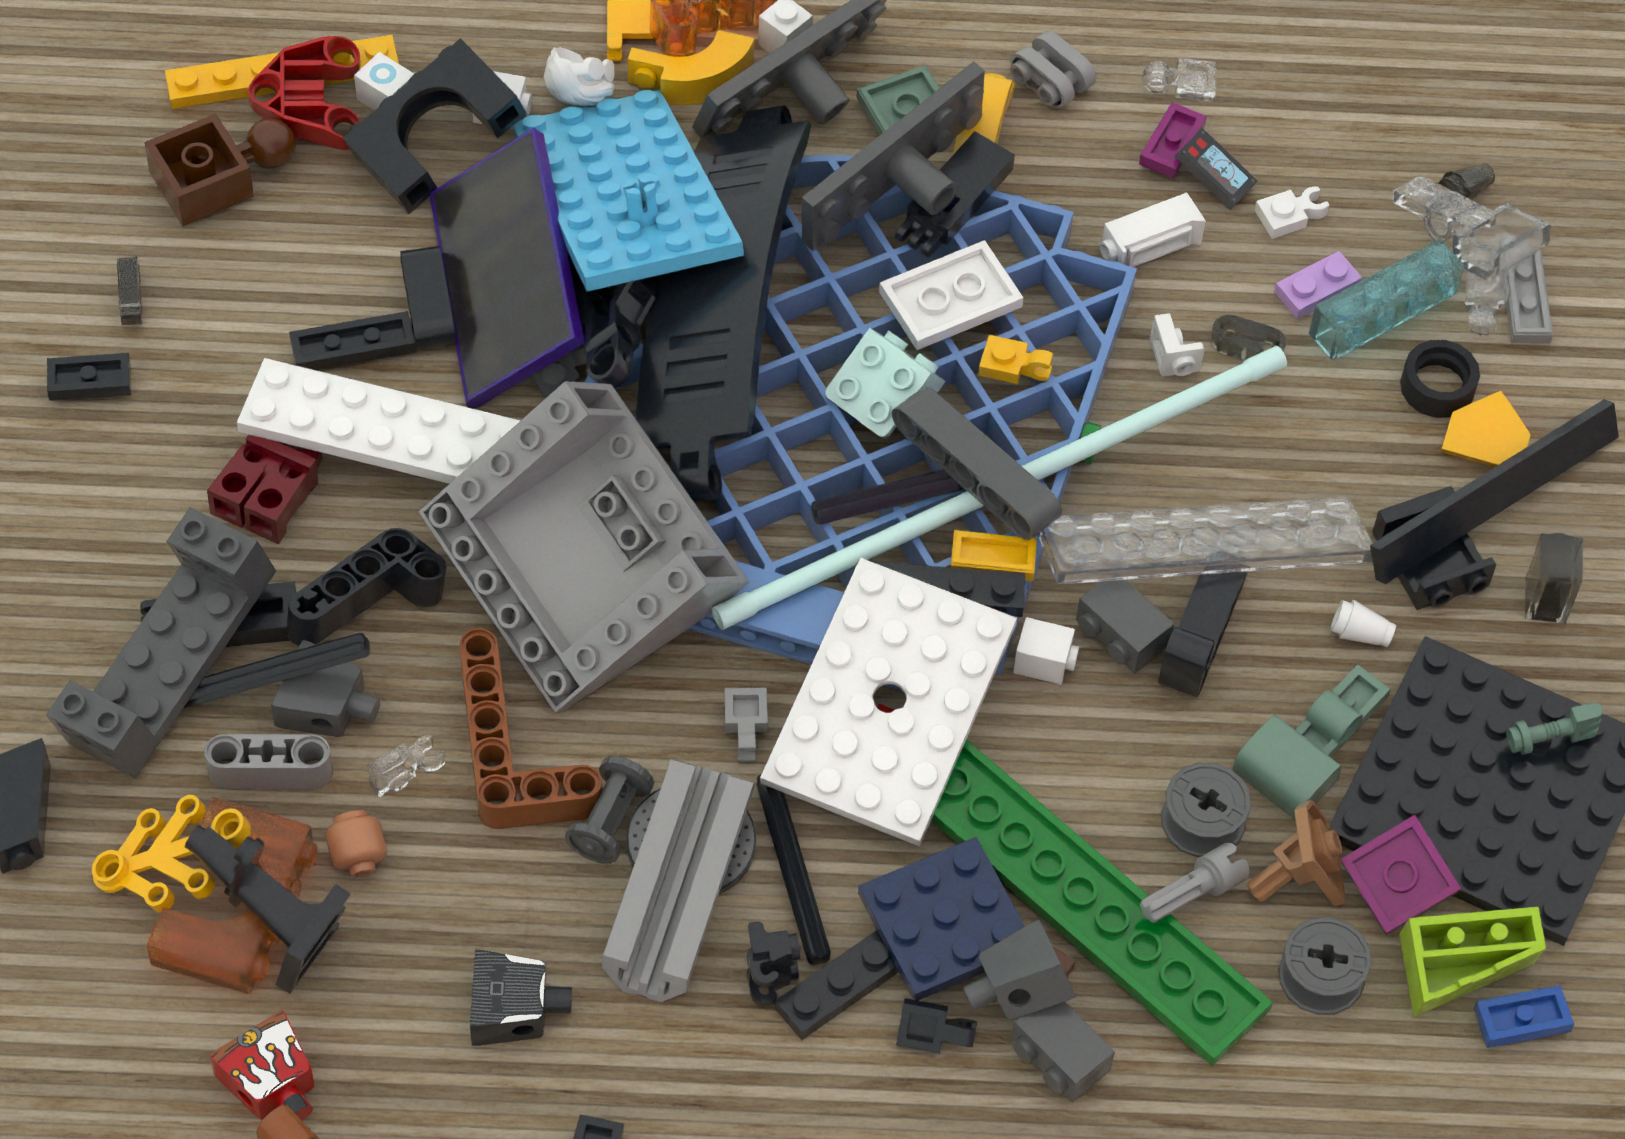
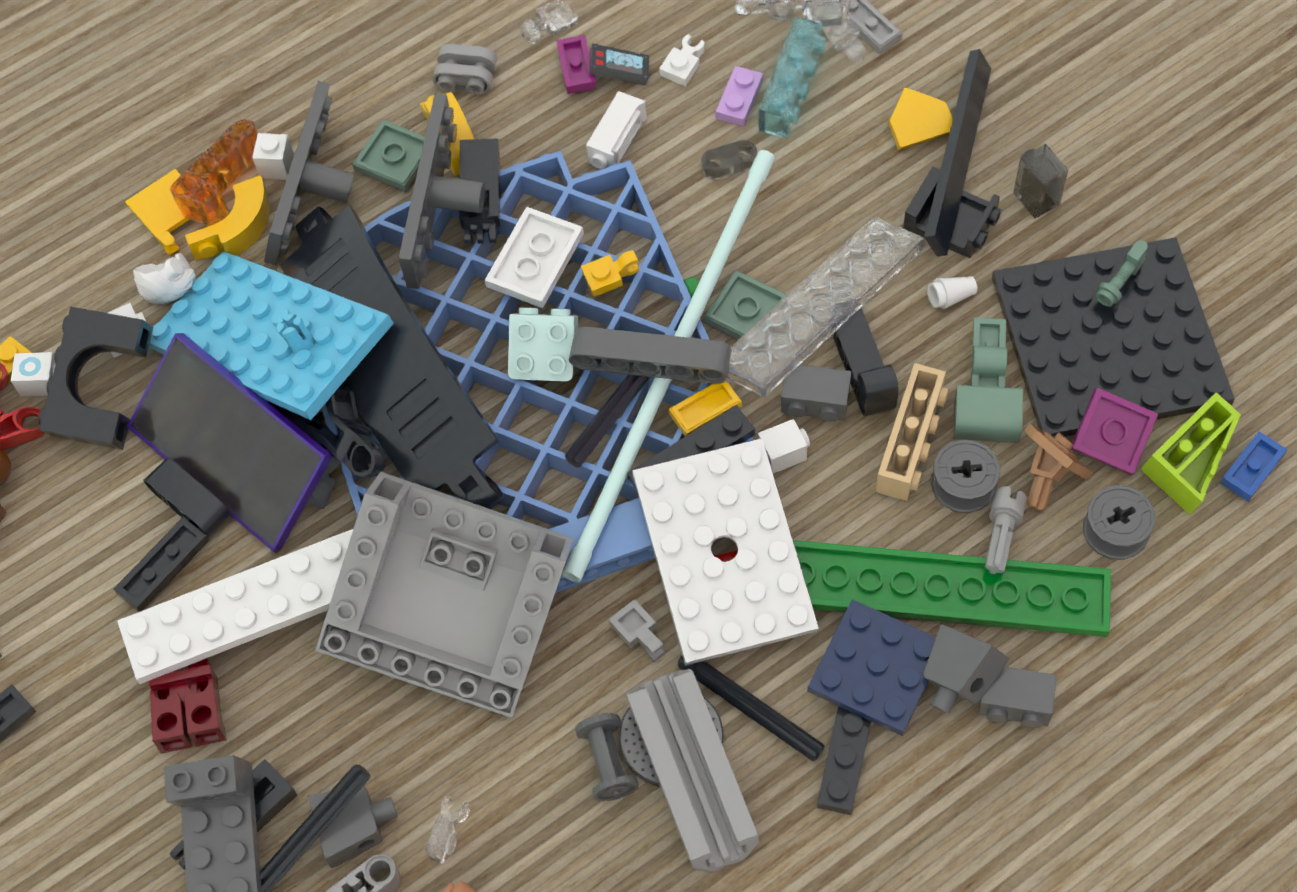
camera: 30 degrees left, 5 degrees up
(384, 564) = (314, 734): black beam -> none
(494, 746) = (497, 768): dark orange beam -> none
(770, 962) = (795, 780): black piece -> none
(925, 1027) = (925, 744): black plate -> none
(1128, 485) = (742, 305): none -> sand green plate
(1169, 351) = (688, 198): white bracket -> none
(1186, 727) = (910, 432): none -> tan brick
(1448, 355) = (867, 86): black tyre -> none

